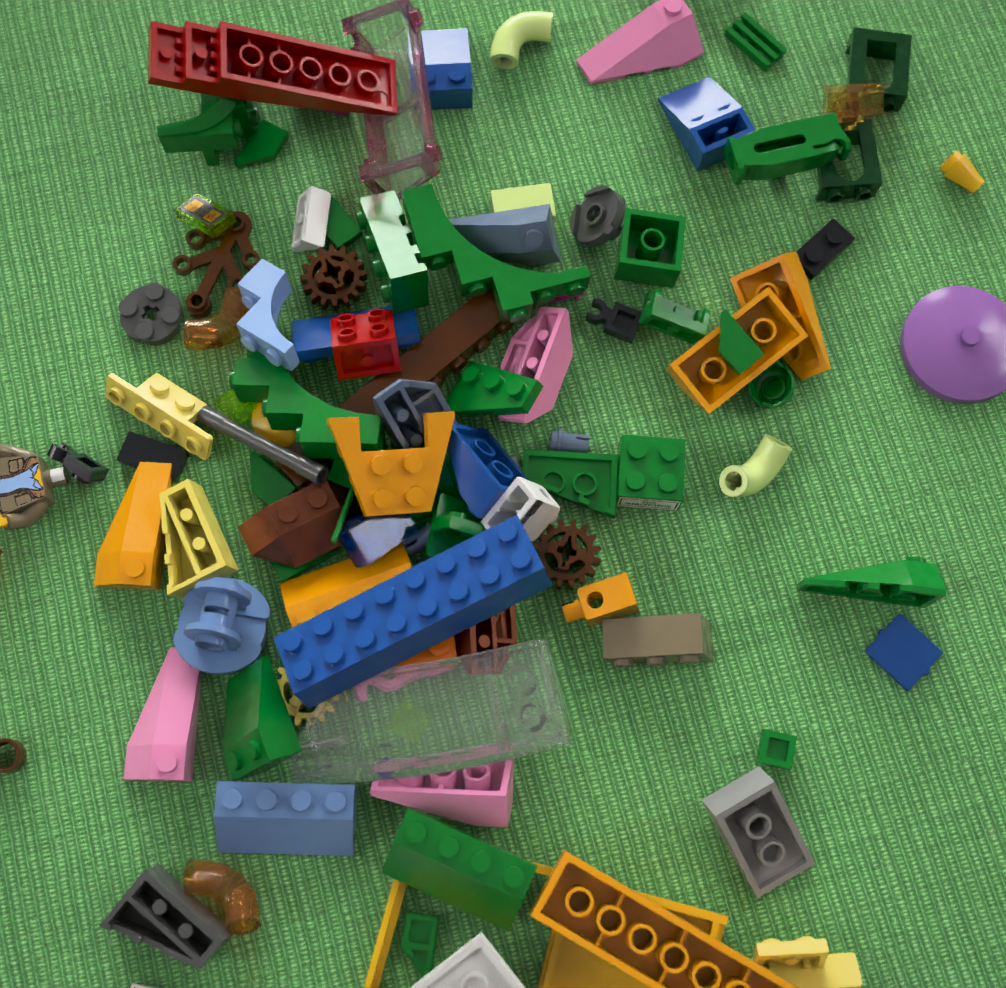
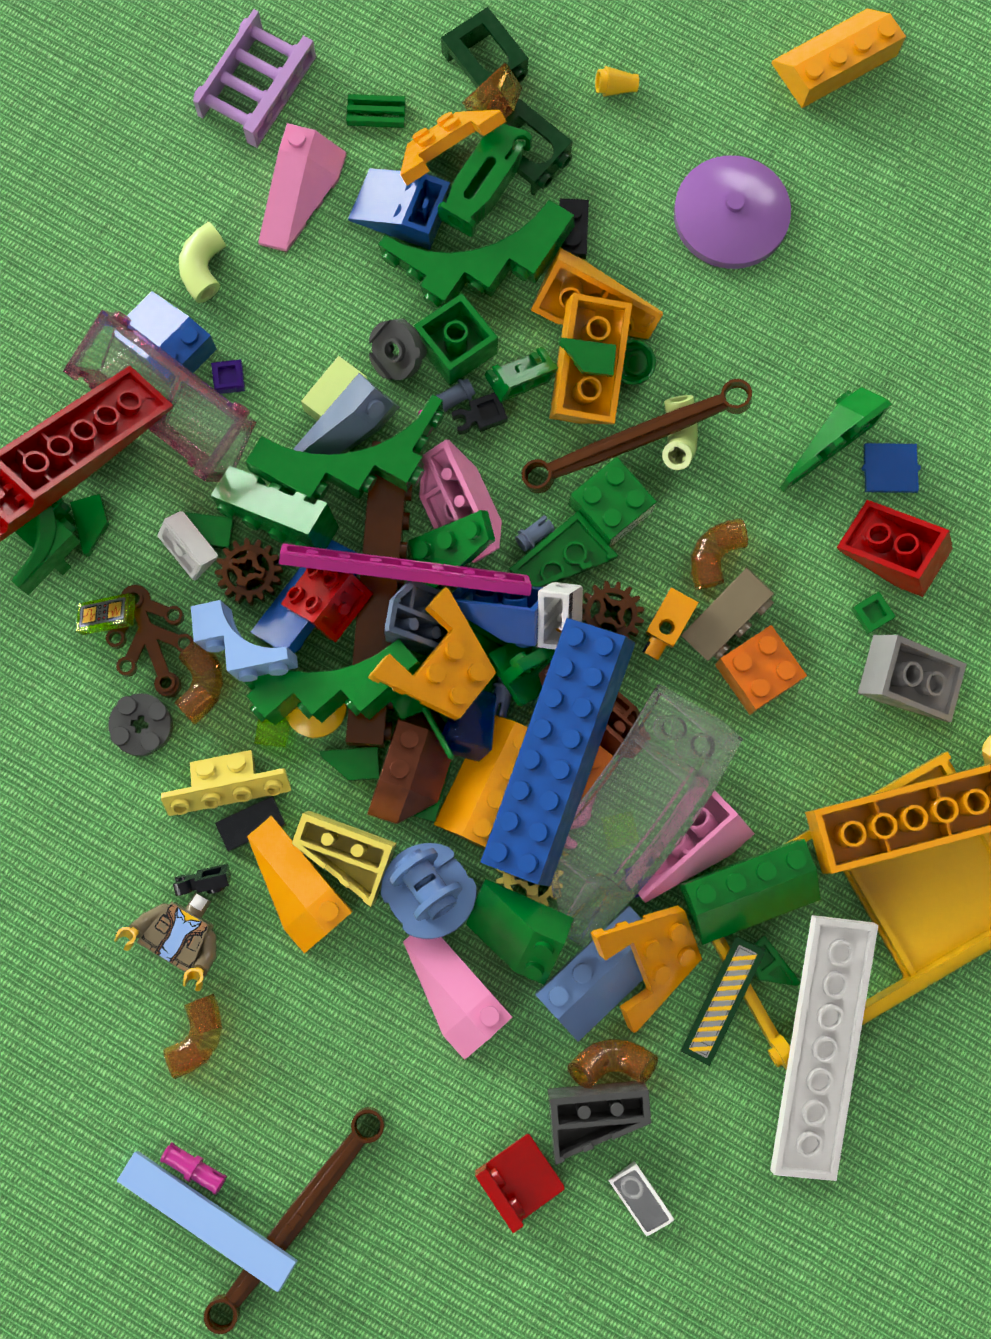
camera: 45 degrees left, 5 degrees up
(63, 912) = (519, 1181): none -> red bracket
(300, 464) = (373, 727): dark grey piece -> none
(345, 848) = (664, 955): none -> light orange wing
(354, 932) = (723, 1000): none -> tile
(439, 373) = (405, 569): none -> dark pink tile
(460, 132) = (228, 376): none -> dark purple tile
(611, 289) = (456, 394): none -> sand blue pin
(640, 706) = (760, 669): none -> orange brick
(691, 579) = (710, 550): none -> clear orange cylinder
(719, 440) = (637, 436): none -> reddish brown piece
(722, 217) = (484, 268): none -> green arch
(771, 93) = (448, 132): none -> light orange wing
(847, 717) = (897, 546): none -> red slope

